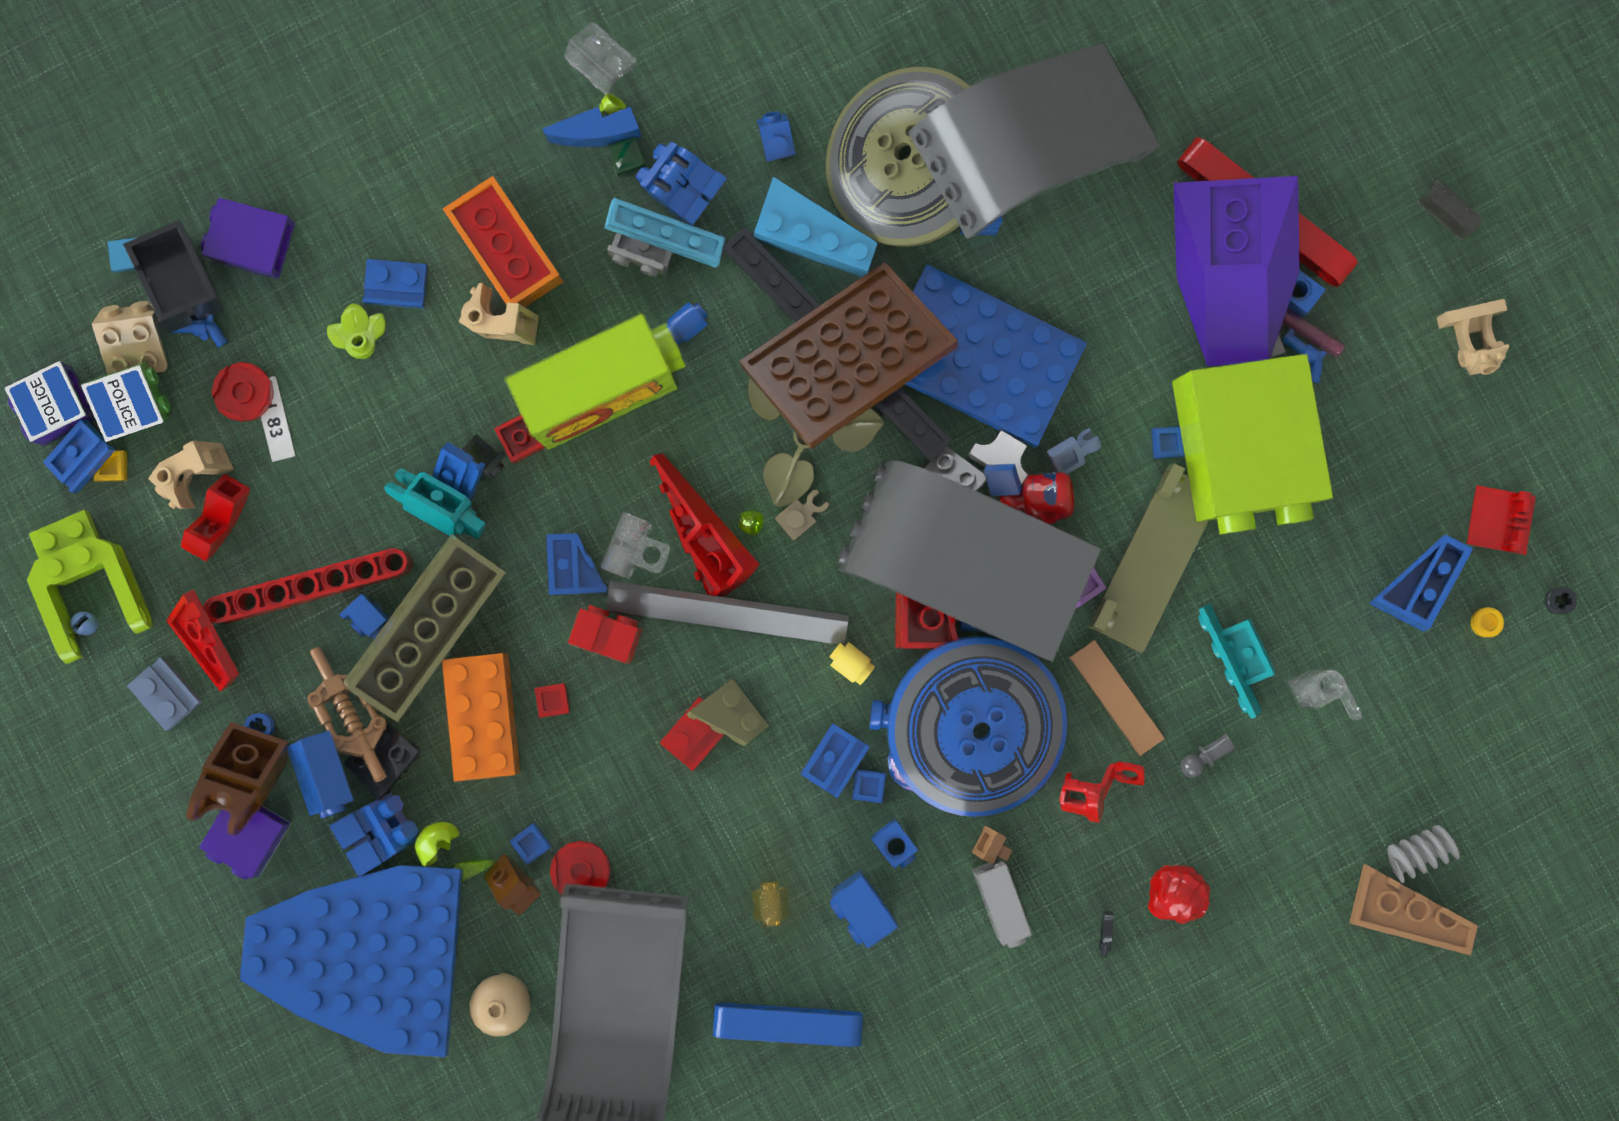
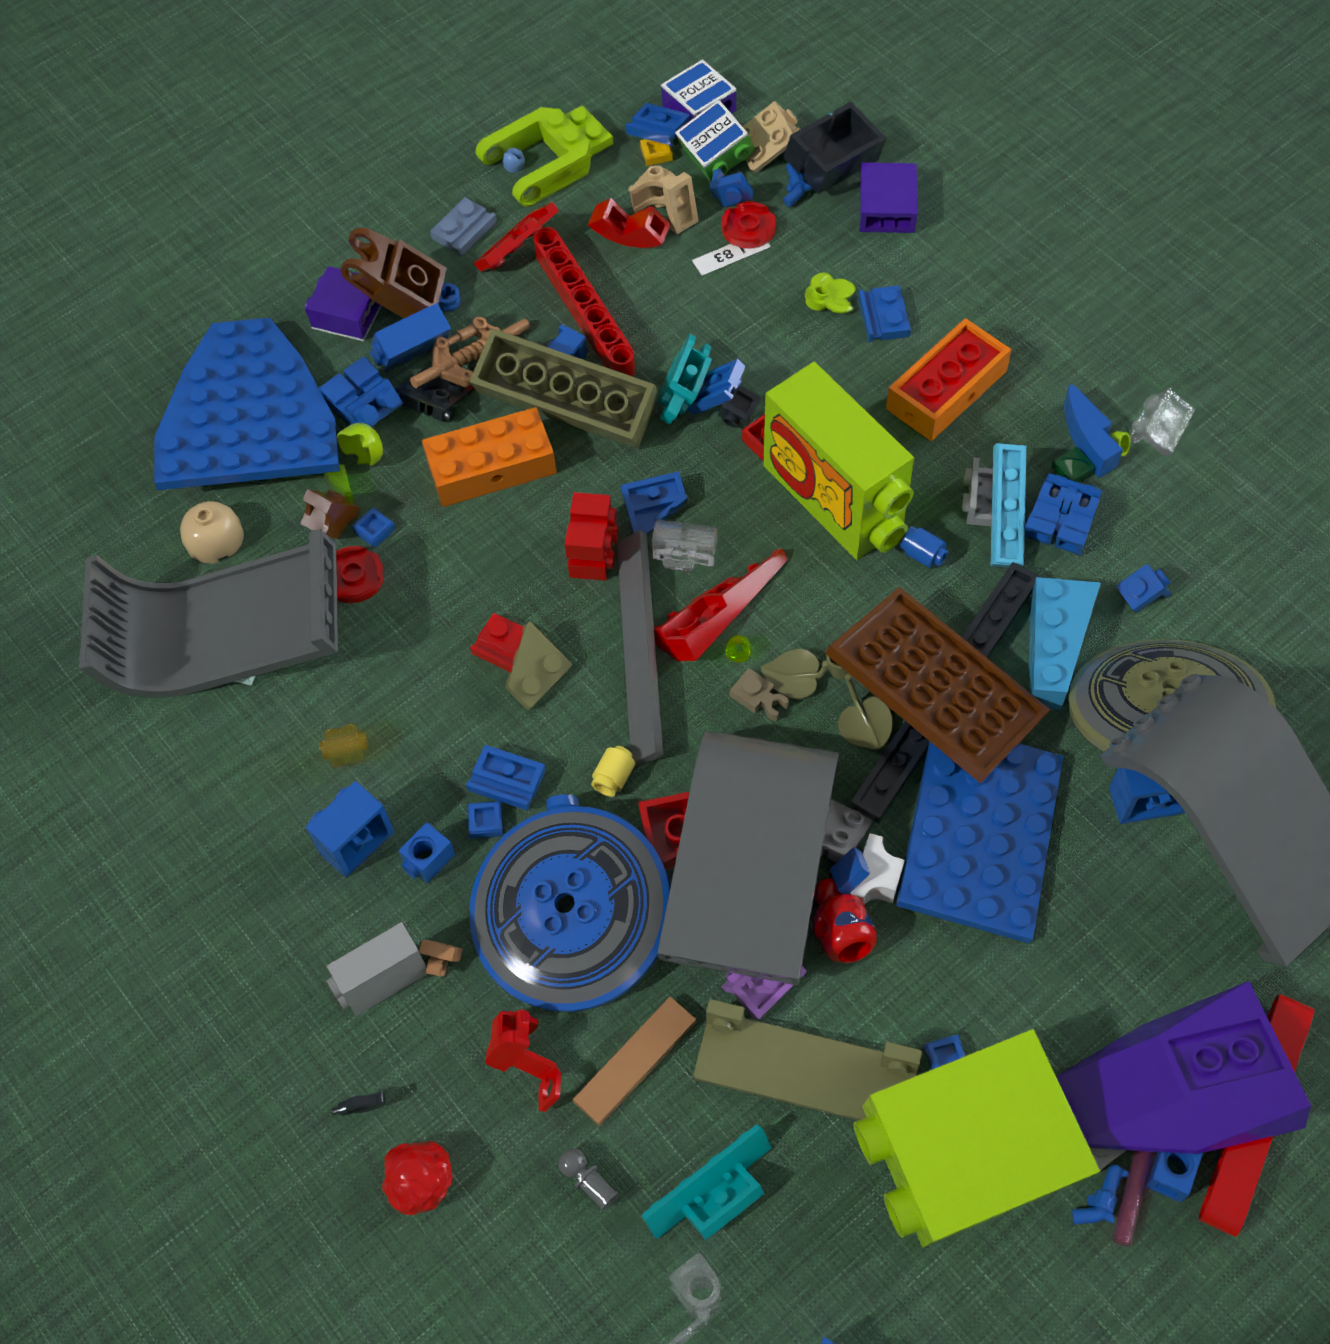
camera: 85 degrees right, 25 degrees down
(197, 402) = (730, 189): none -> blue bracket
(514, 325) = (876, 381): tan tile -> none
(552, 700) = (518, 516): red tile -> none
(788, 1024) = (218, 791): blue beam -> none
(1070, 453) = (899, 946): sand blue plate -> none

